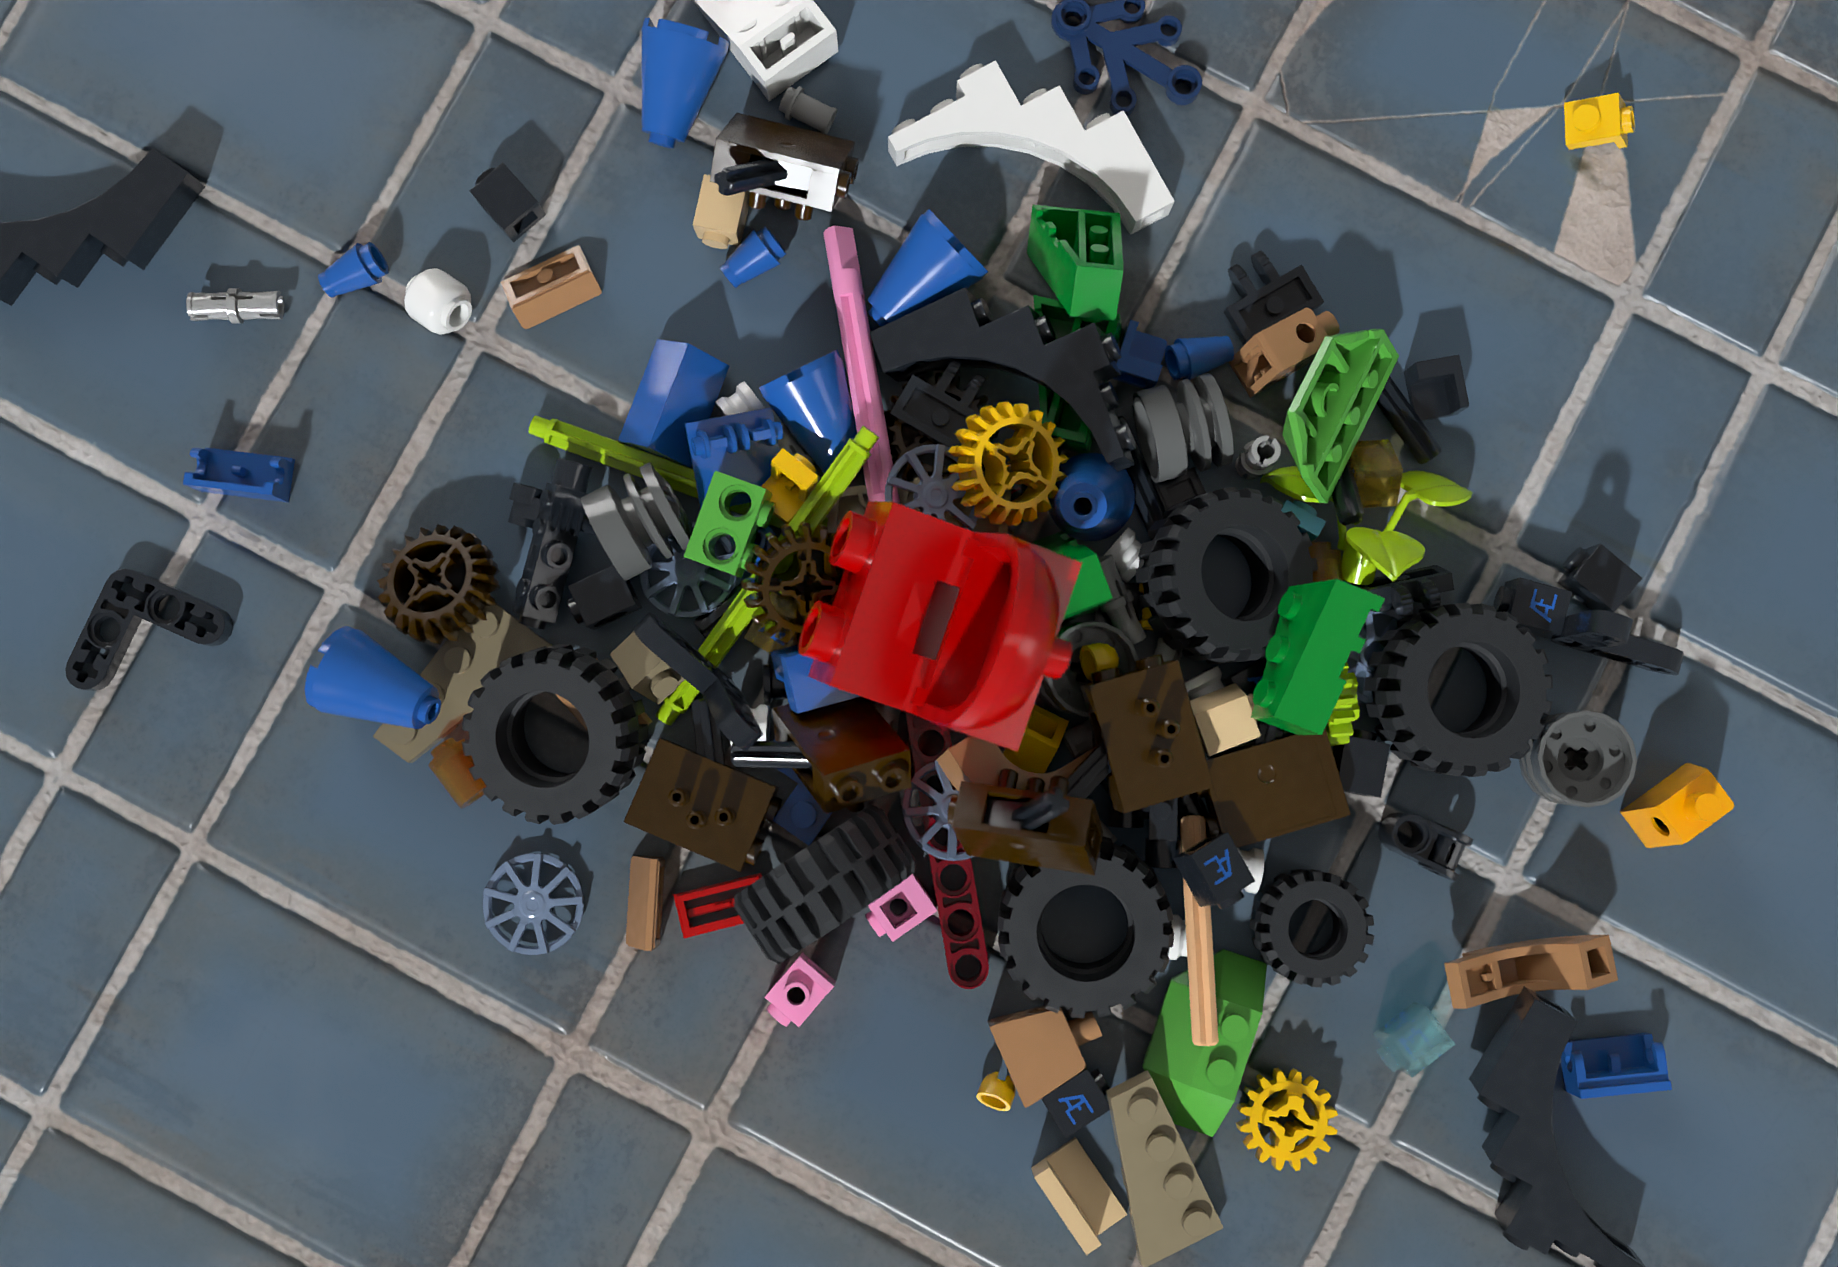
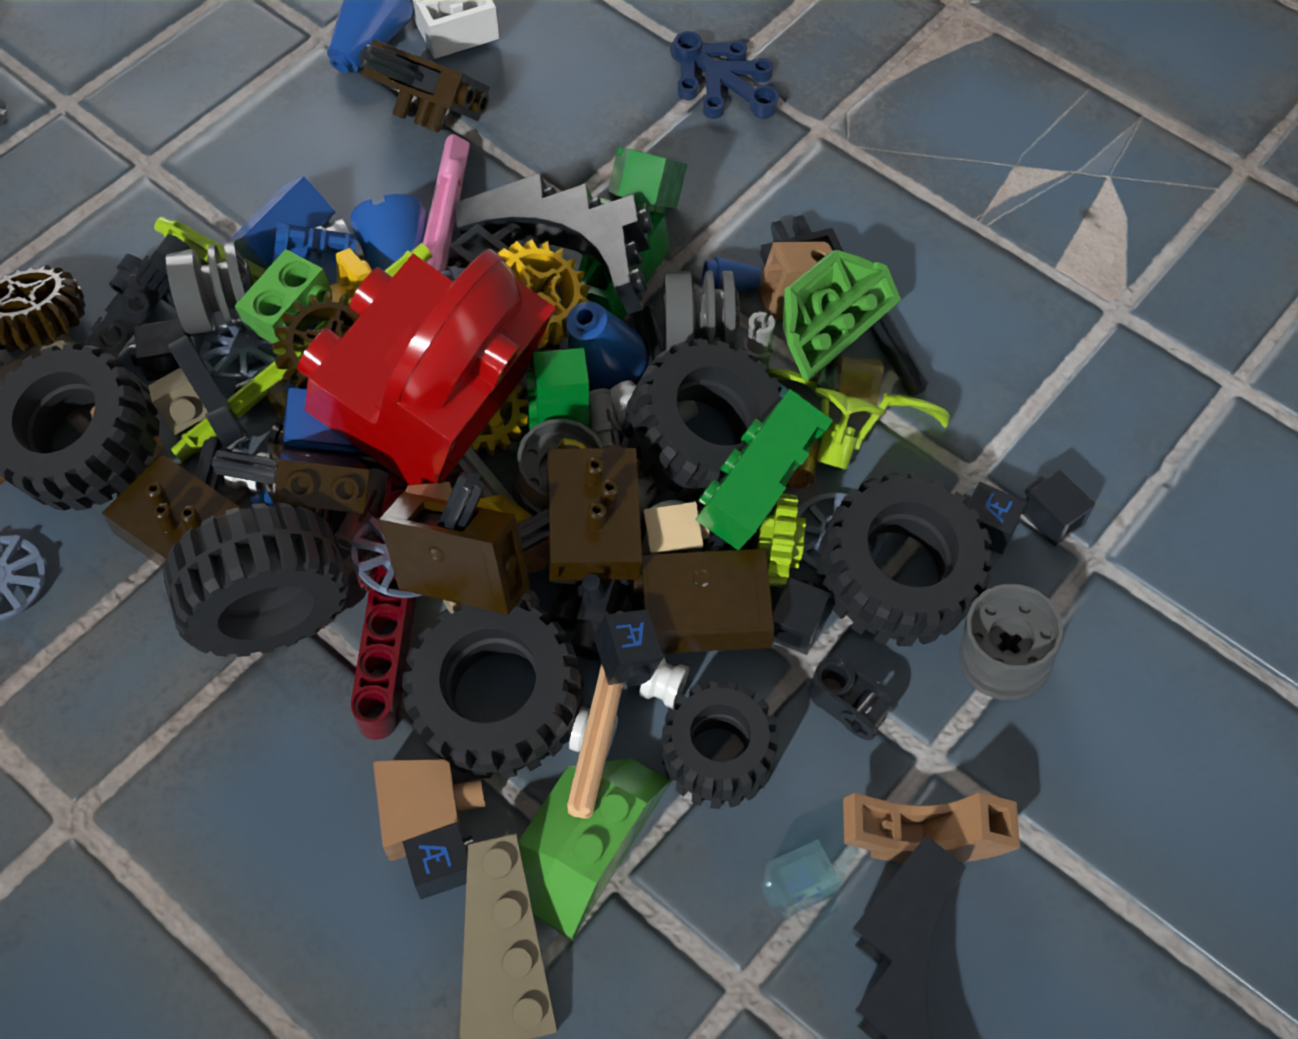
camera: 15 degrees right, 25 degrees down
(354, 270) = (68, 100): blue cone -> none
(438, 301) = (122, 128): white head -> none
(507, 201) = (205, 79): black brick -> none
(551, 287) = (216, 143): medium nougat slope -> none
(645, 902) = (100, 597): medium nougat slope -> none
(684, 913) = (140, 625): red tile -> none
(718, 217) = (369, 112): tan brick -> none
(753, 257) = (383, 147): blue cone -> none
(807, 109) = (454, 59): light grey pin -> none
(808, 977) = (206, 701): bright pink brick -> none
(919, 908) = (330, 632): bright pink brick -> none
(923, 271) = (516, 160): blue cone -> none
(996, 1092) = (363, 840): yellow hinge -> none
(1045, 126) = (644, 105): white arch -> none
(1078, 1193) = (415, 963): tan panel -> none
(1140, 357) = (672, 260): blue panel -> none
(1284, 1138) = (668, 939): yellow gear -> none
(1412, 586) = (851, 475): black hinge -> none
(1437, 387) = (932, 334): black panel -> none
(1598, 121) = (1103, 180): yellow bracket -> none
(1609, 637) = (1055, 559): black beam -> none
(1614, 1066) = (1010, 958): blue hinge -> none
(1684, 802) = (1118, 708): light orange torso -> none

